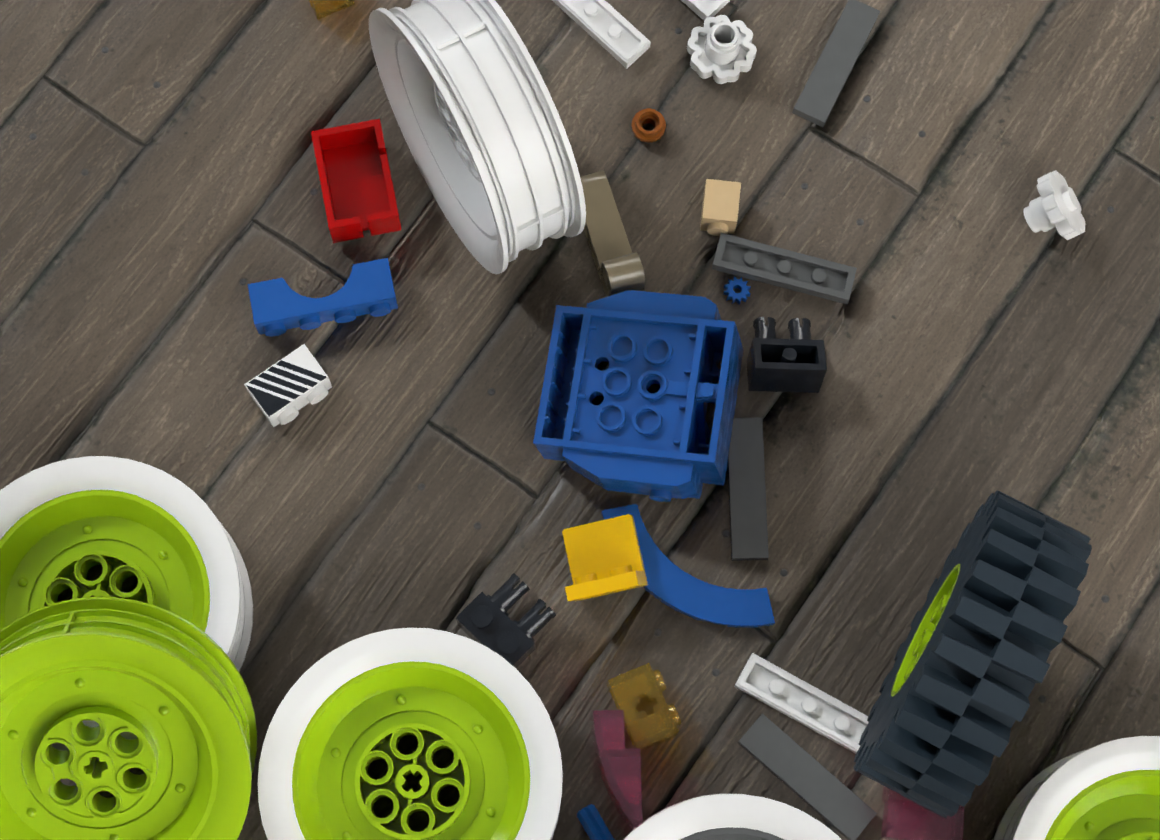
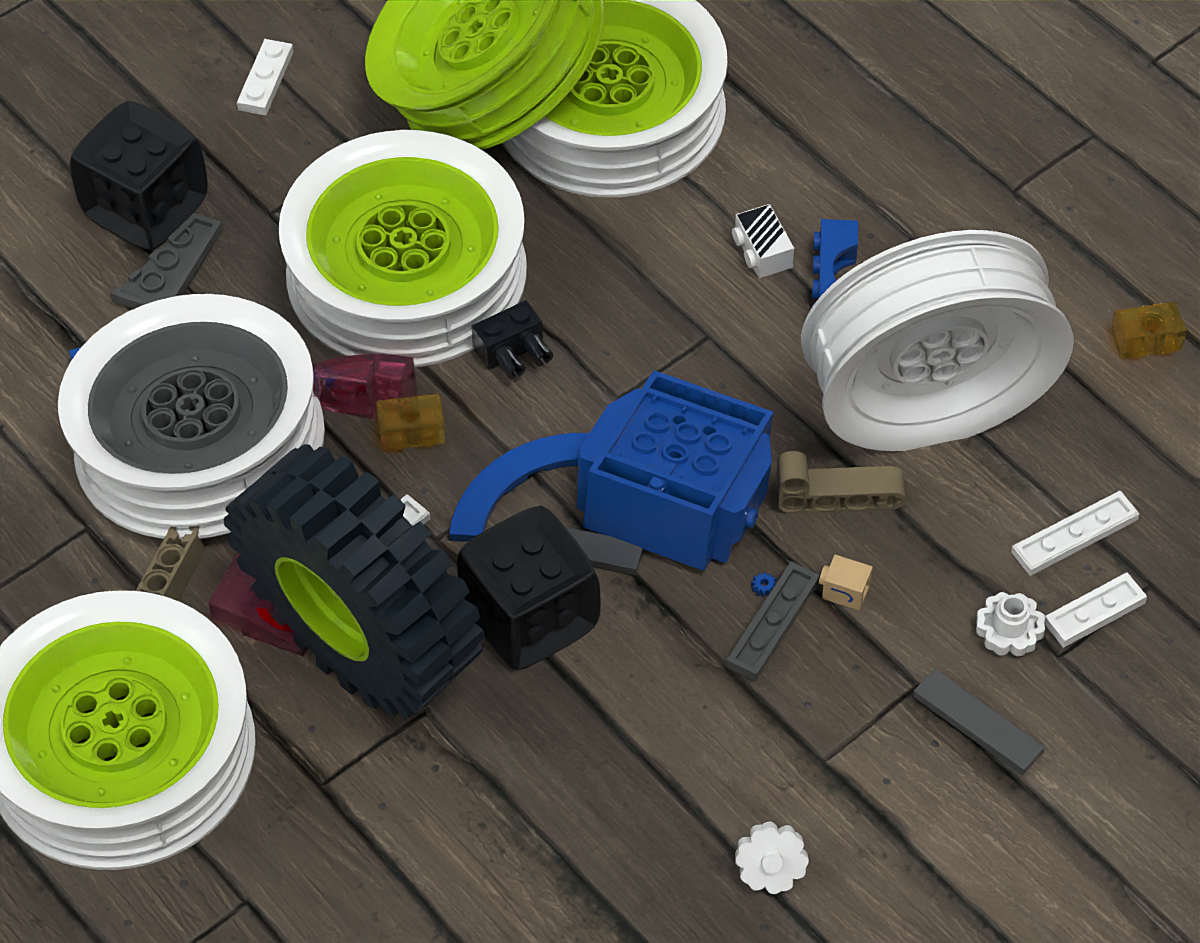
camera: 110 degrees right, 20 degrees down
(603, 558) = (540, 421): yellow bracket -> none
(648, 116) = (945, 542): dark orange plate -> none
(785, 363) = (675, 592): black brick -> none
(848, 501) = (530, 586): none -> black piece

